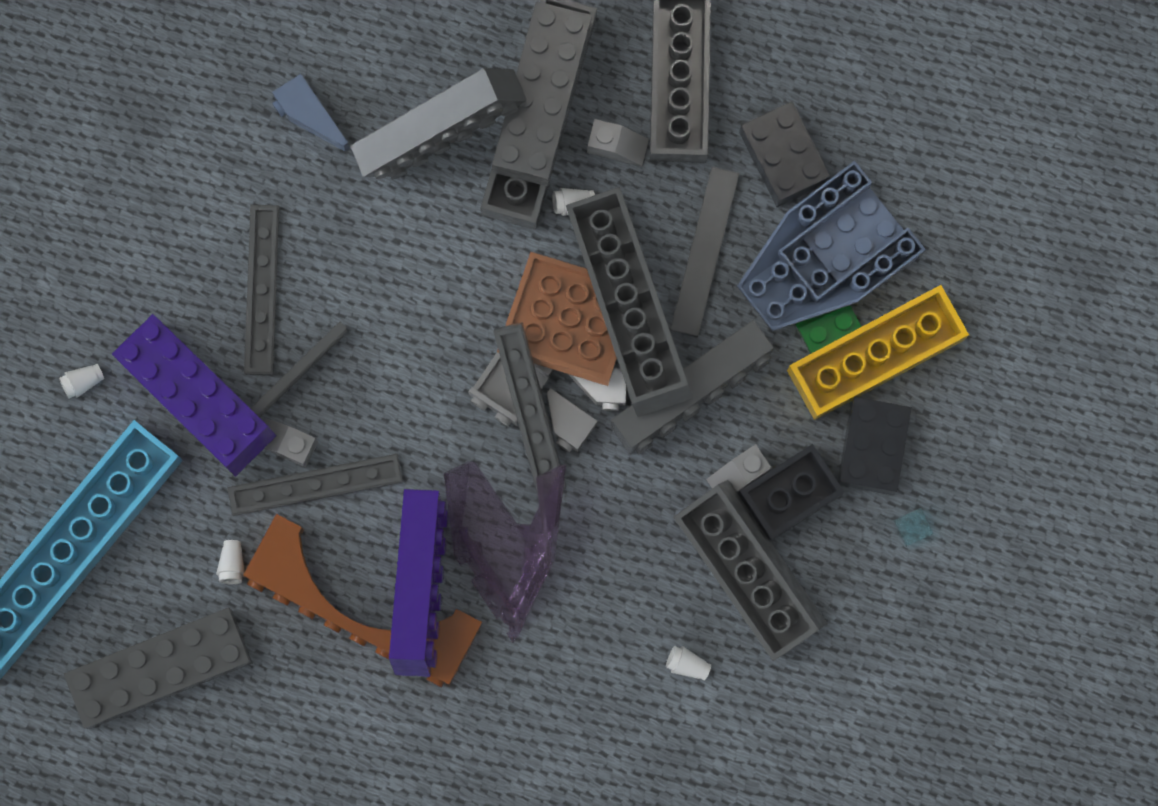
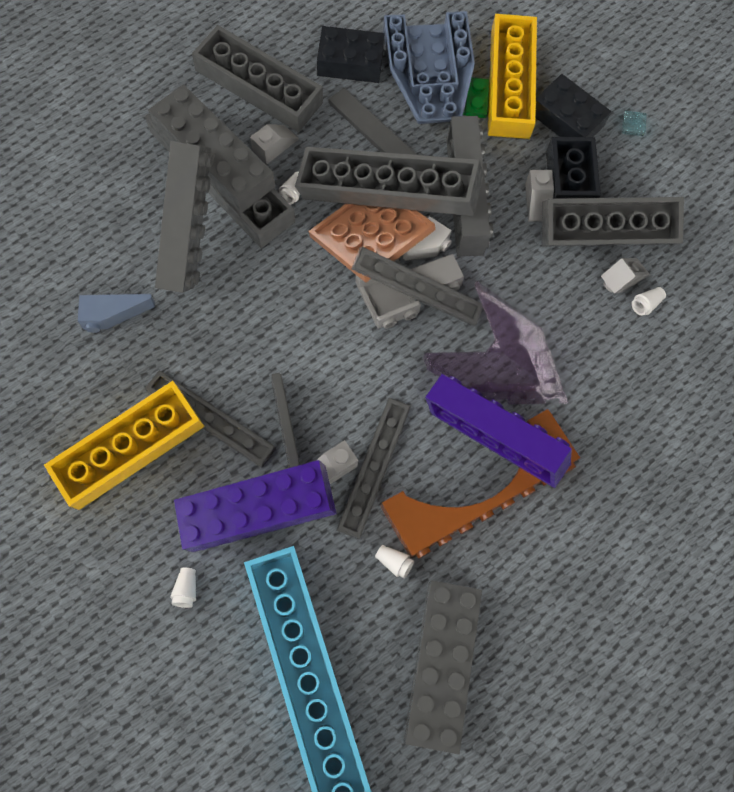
camera: 60 degrees left, 10 degrees down
(177, 230) = (123, 446): none -> yellow brick
(702, 621) = (624, 275): none -> light grey slope

